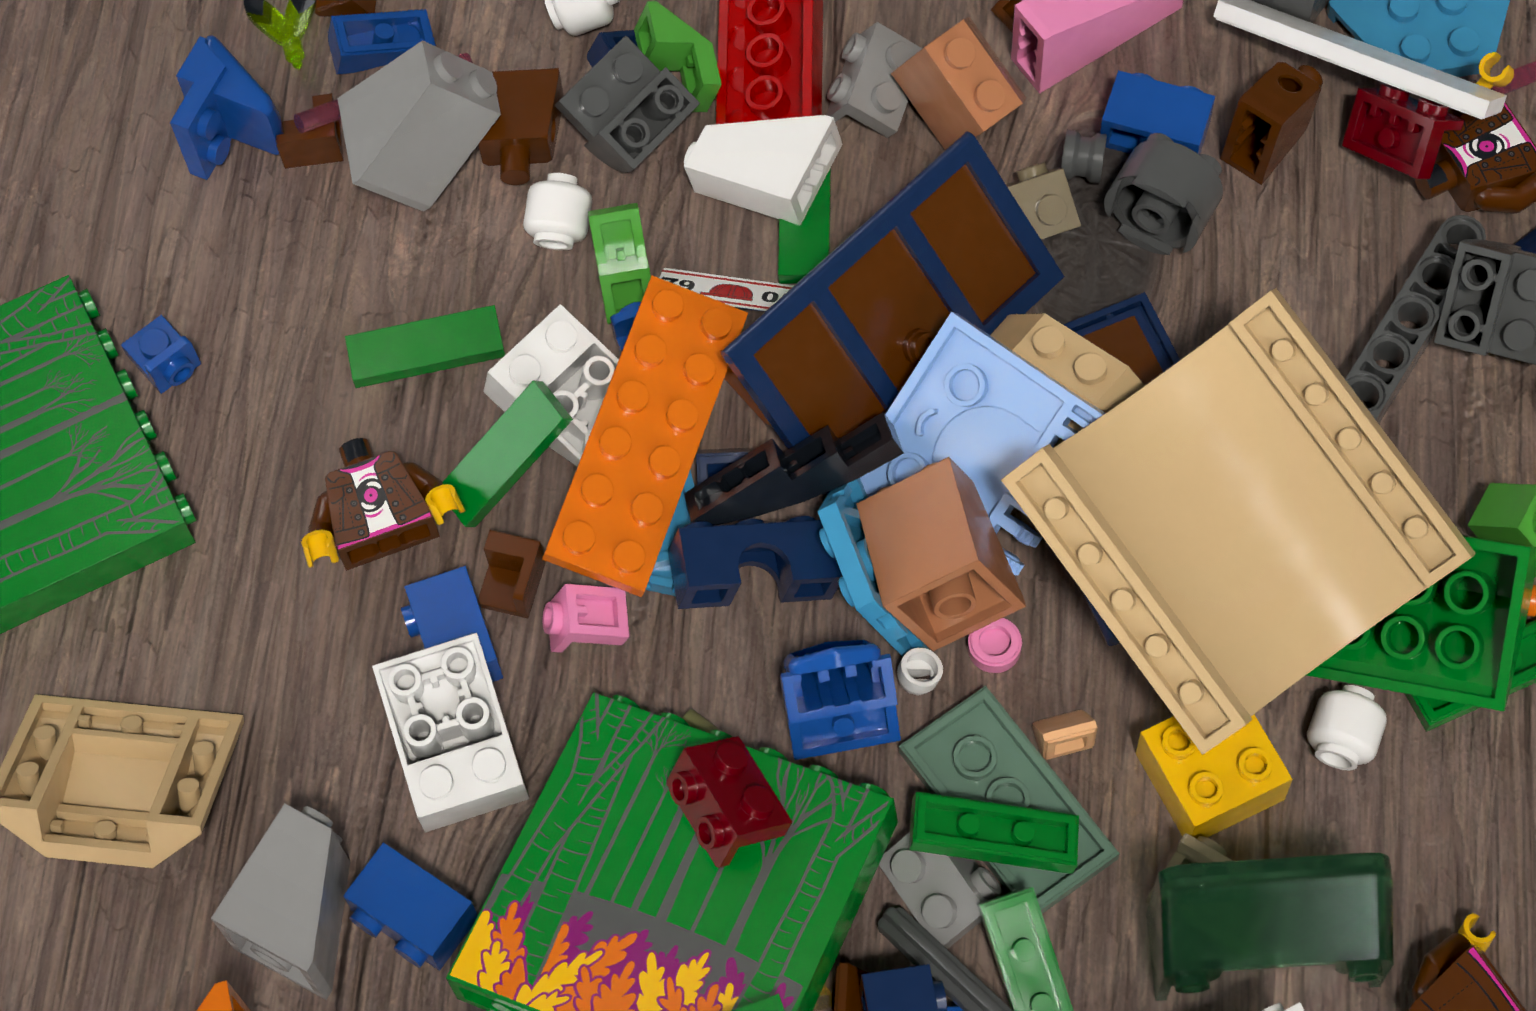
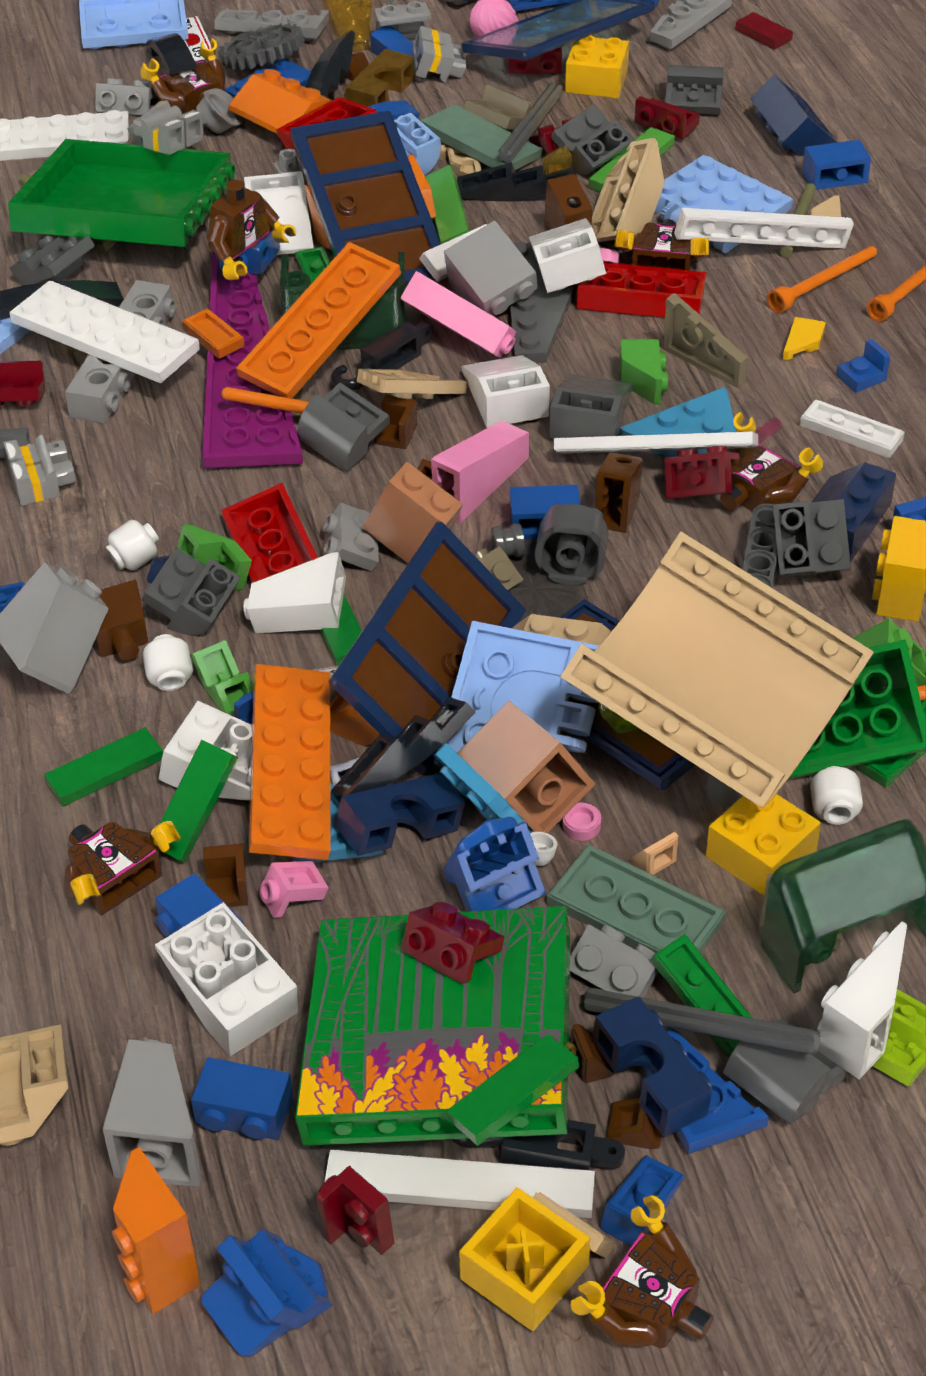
camera: 25 degrees left, 20 degrees down
(994, 832) = (639, 916): green tile -> none

